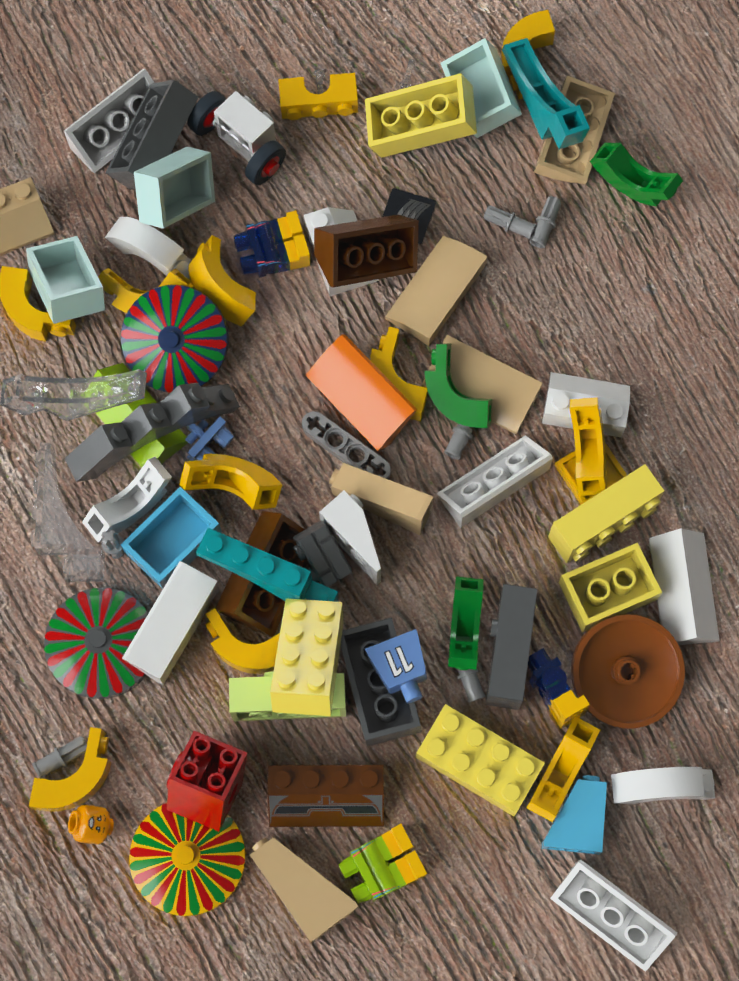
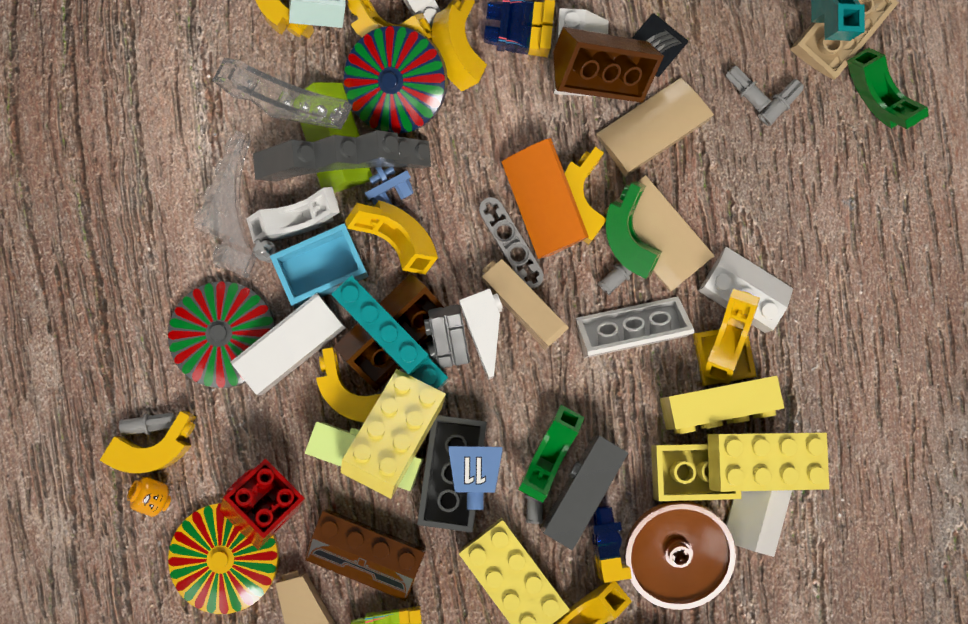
camera: 15 degrees right, 10 degrees up
(670, 545) = (768, 462): none -> light yellow brick

